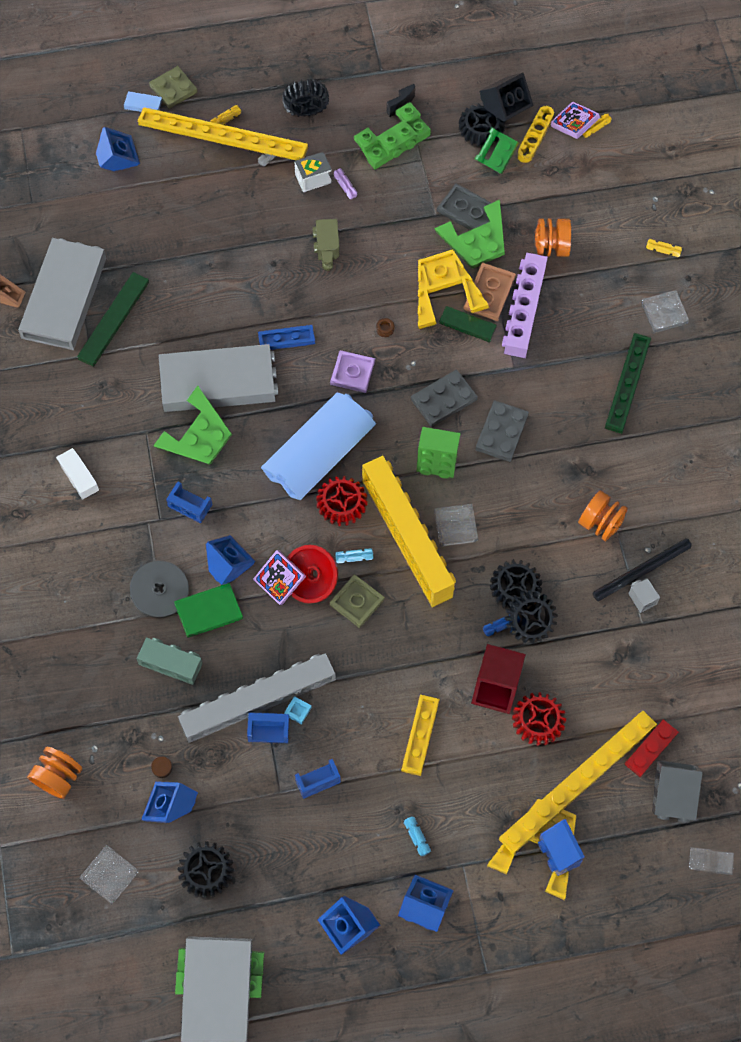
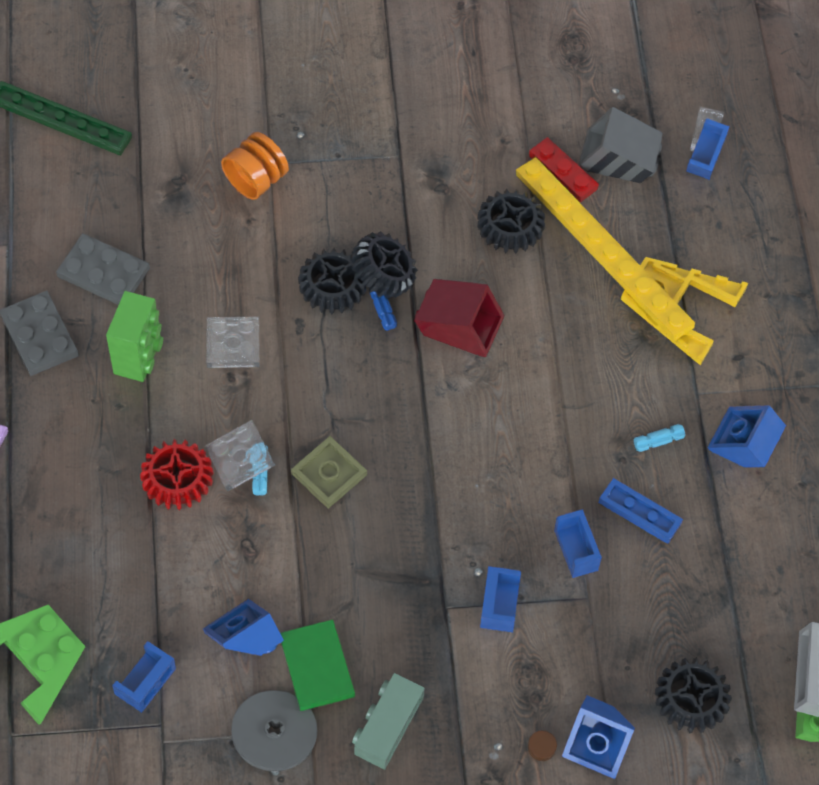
camera: 85 degrees left, 5 degrees down
(257, 697) = (456, 611): light grey brick -> none
(279, 577) = (282, 563): tile -> none
(298, 710) = (477, 561): medium azure plate -> none
(312, 558) = (302, 517): red dish -> none
(319, 445) = (86, 493): light blue cylinder -> none
(348, 923) = (773, 526): blue slope -> none
(352, 824) = (640, 511): none -> blue plate
(361, 539) = (240, 455): none -> clear plate
(408, 531) = (239, 392): yellow brick -> none
(420, 735) = (524, 419): yellow tile -> none
(531, 704) = (521, 271): red gear -> none
(561, 848) = (694, 268): slope -> none
(585, 695) = (507, 228): none -> black gear
(642, 569) = (329, 143): black axle -> none
(643, 595) = (365, 144): light grey brick -> none
(686, 859) = (708, 149): none -> blue panel

